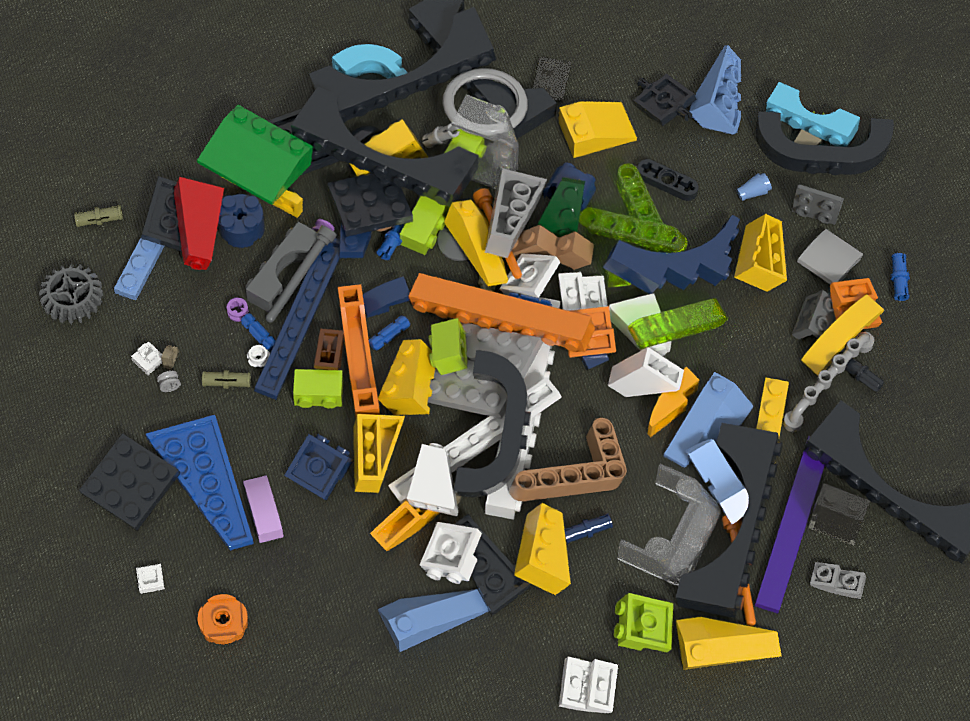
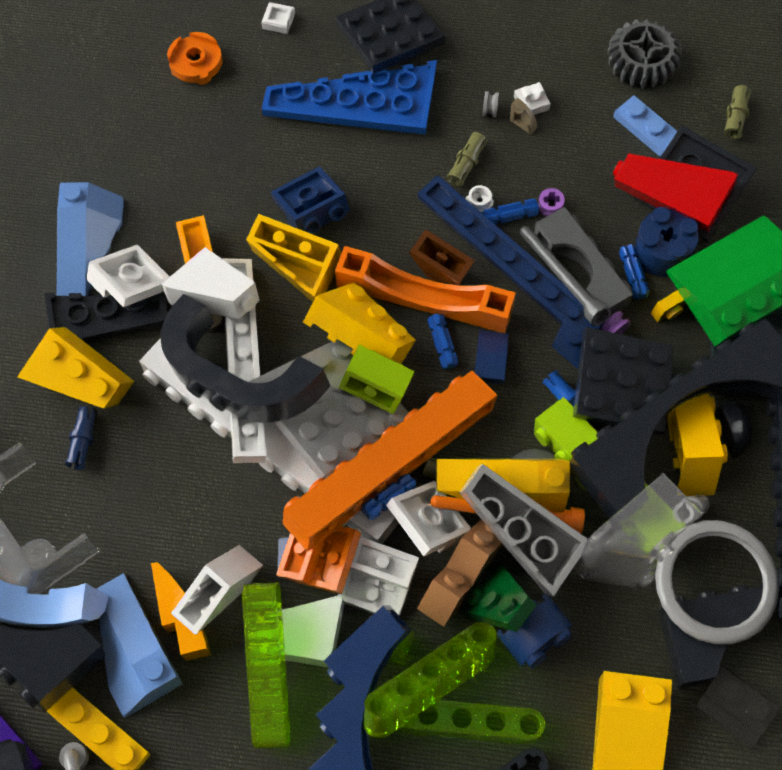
camera: 120 degrees right, 5 degrees up
(263, 509) = (292, 132): lavender slope -> none
(270, 236) = (634, 272): none -> blue axle
(318, 388) = (403, 233): lime brick -> none
(577, 473) = (143, 448): medium nougat beam -> none

